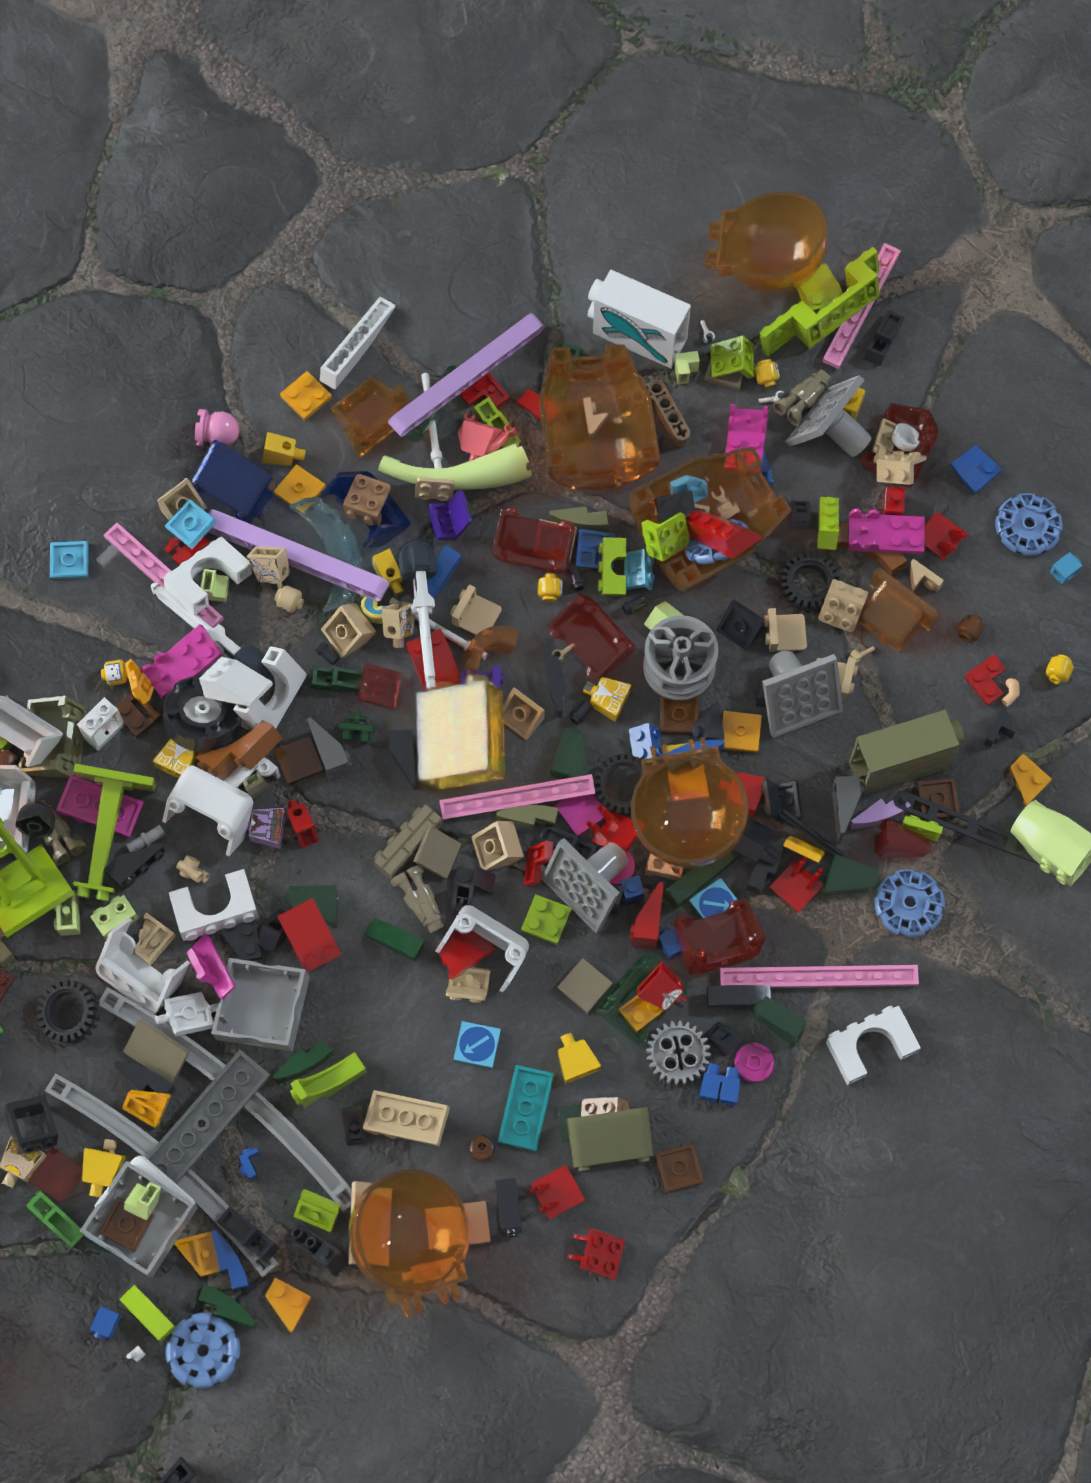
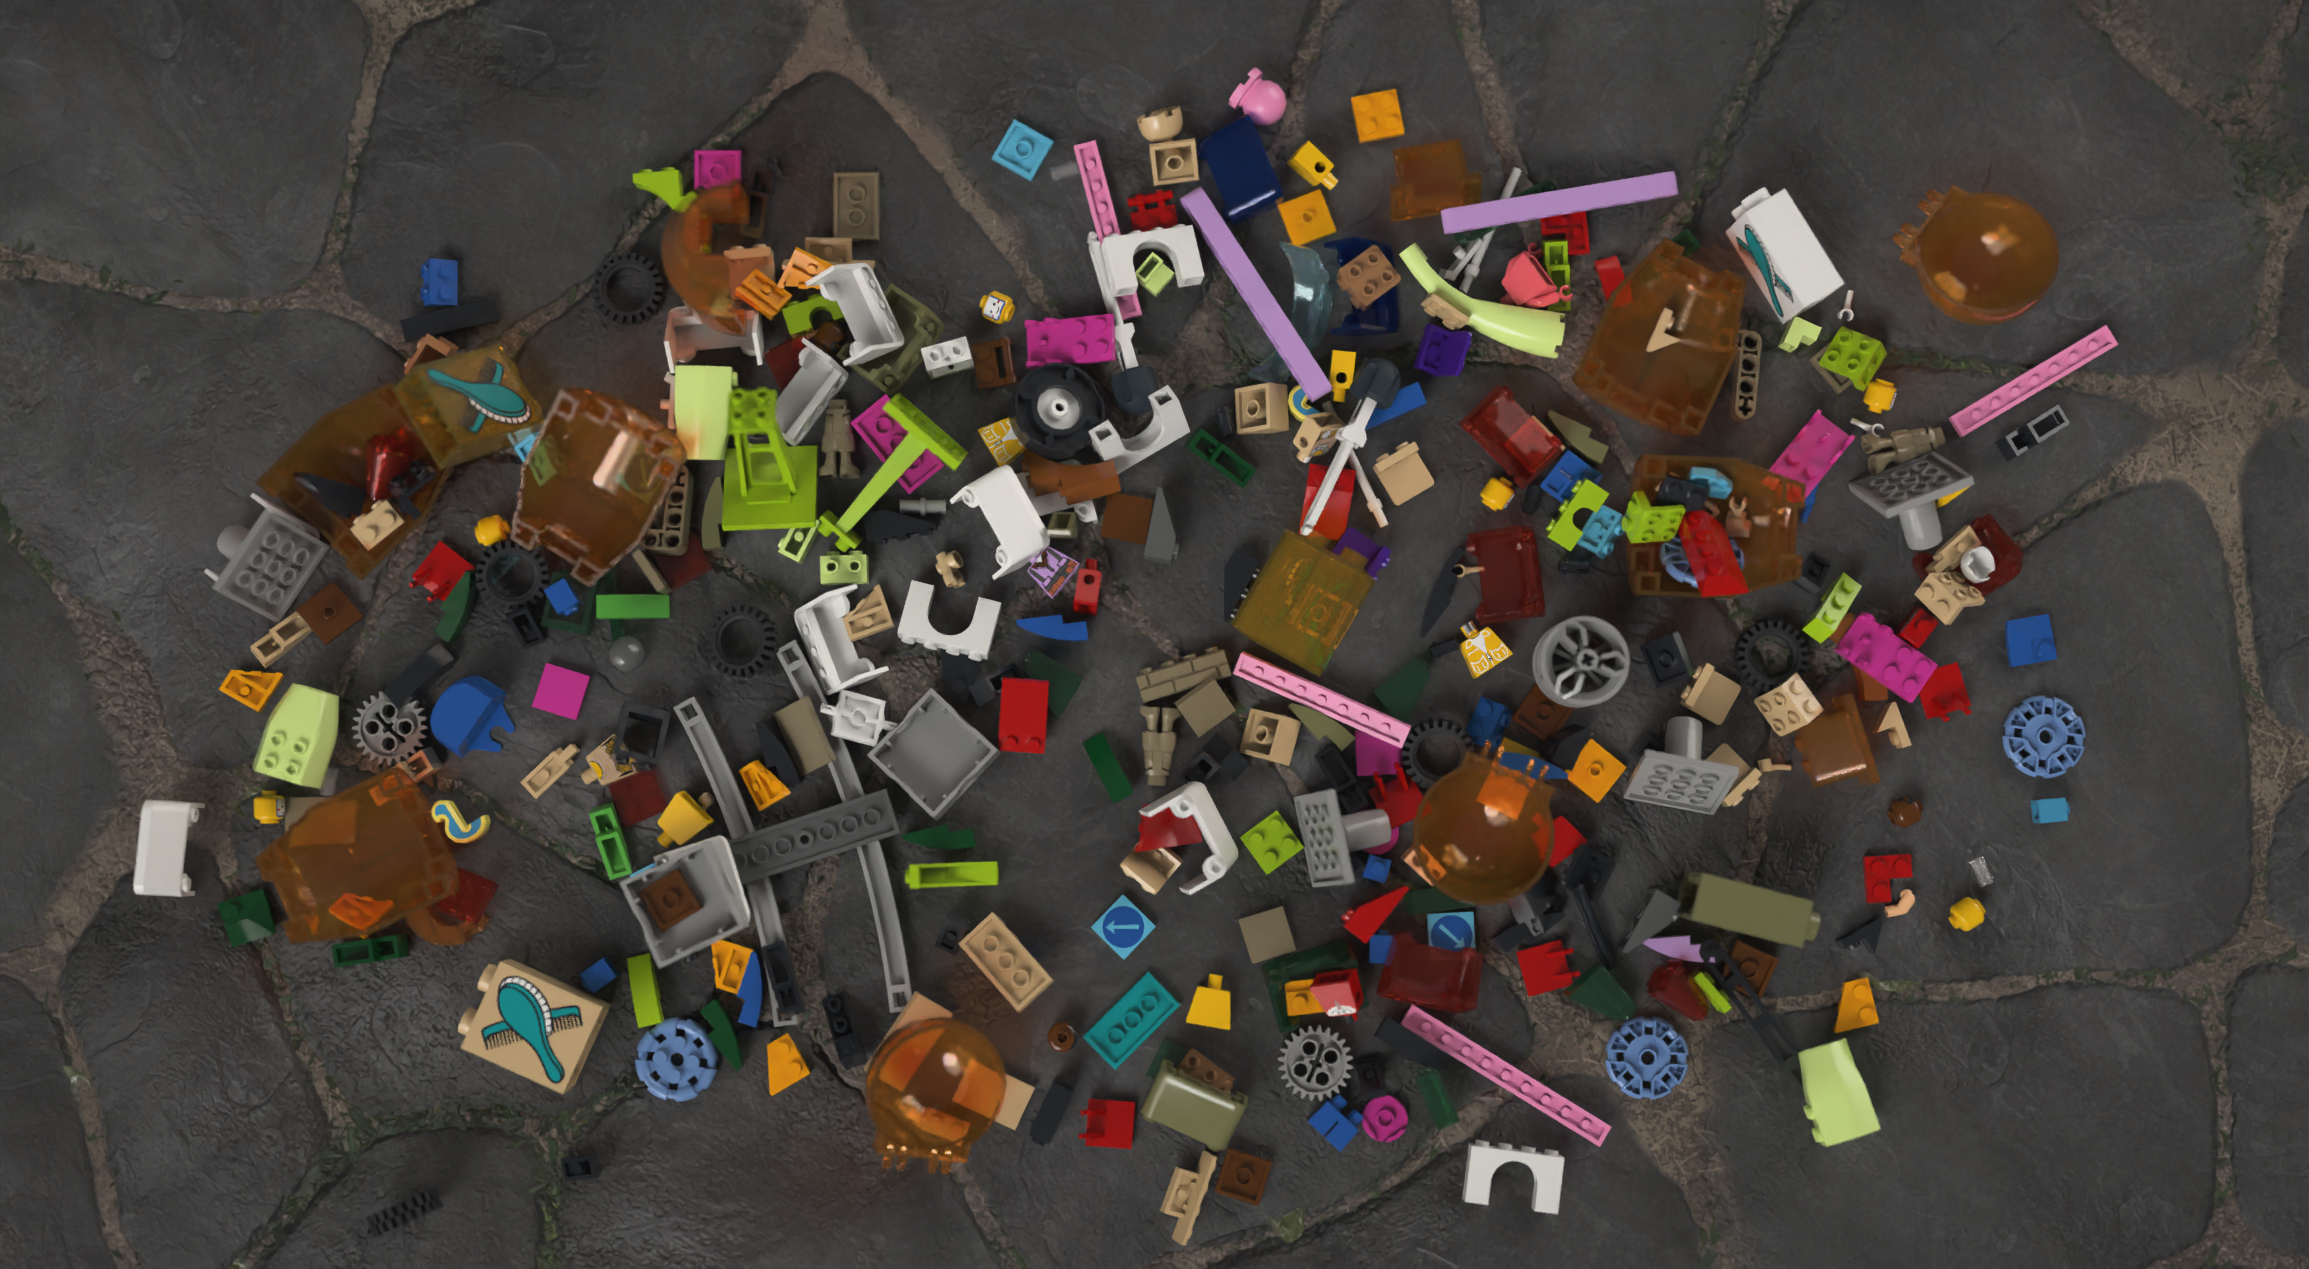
camera: 30 degrees right, 15 degrees up
(35, 819) = (824, 420): black cylinder -> none
(75, 1389) = (533, 1024): none -> tan brick
(136, 1353) = (611, 1023): white hand -> none
(139, 683) = (1014, 336): light orange wing -> none
(143, 1200) = (698, 889): yellowish green piece -> none
(157, 484) = (1161, 124): none -> tan cylinder
(190, 524) = (1169, 191): medium azure tile -> none
(210, 967) = (906, 685): dark pink bracket -> none
(233, 683) = (1106, 404): white slope -> none
(247, 1168) = (824, 909): blue bracket -> none
(269, 565) = (1222, 289): tan torso -> none
(289, 599) = (1221, 337): tan head -> none
(294, 865) = (1054, 628): none -> blue slope
(317, 1210) = (866, 995): lime plate -> none
(355, 344) = (1466, 90): white slope -> none
(365, 730) = (1198, 515): dark green hips -> none
(379, 686) = (1255, 491): clear red plate -> none
(424, 449) = (1463, 257): none -> white piece
(495, 637) = (1408, 515): clear orange arch -> none
(522, 714) = (1381, 613): tan slope -> none
(536, 857) = (1299, 775): red plate -> none
(601, 1253) = (1114, 1212): red plate -> none
(646, 1207) = (1186, 1195): none -> tan bracket
(660, 613) = (1593, 600): yellowish green piece -> none
(804, 848) = (1576, 938): yellow tile -> none
(812, 327) = (1957, 370): lime bracket -> none
(820, 289) = (1998, 345): lime slope -> none
(1049, 636) = (1981, 871): none -> clear pin

